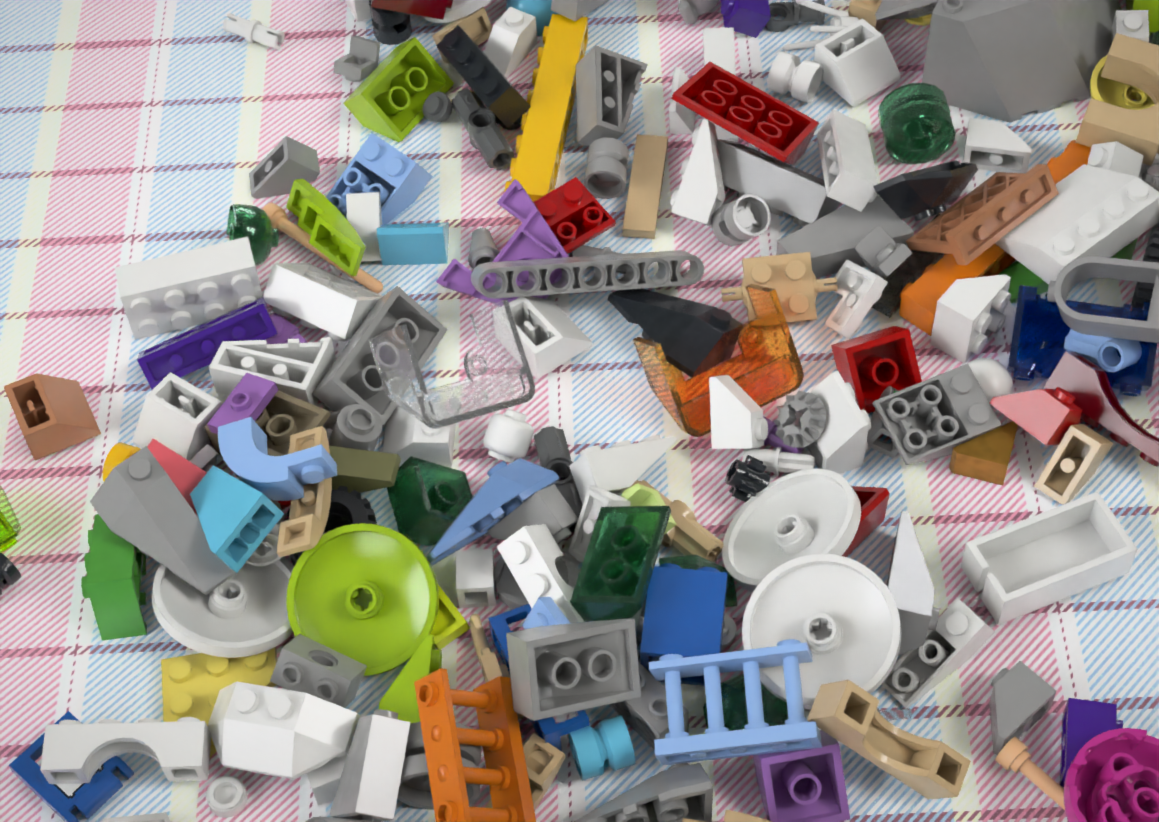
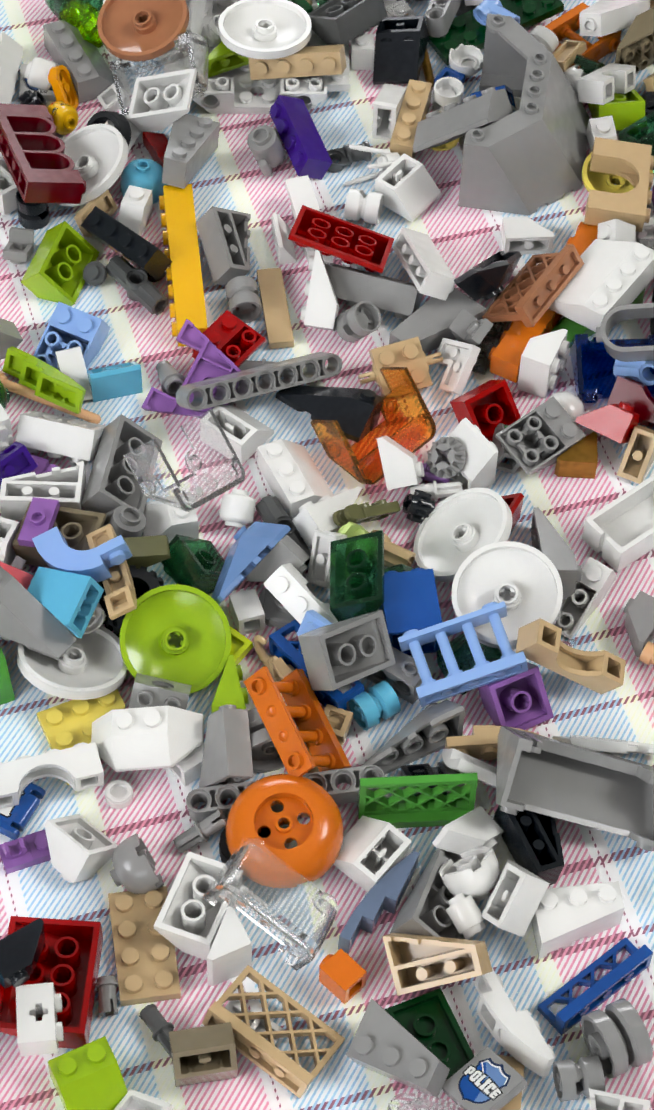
camera: 20 degrees left, 0 degrees up
(597, 402) = (291, 474): none -> white slope
(669, 475) = (365, 513): none -> olive hinge
(916, 123) = (465, 228): clear green wheel -> none

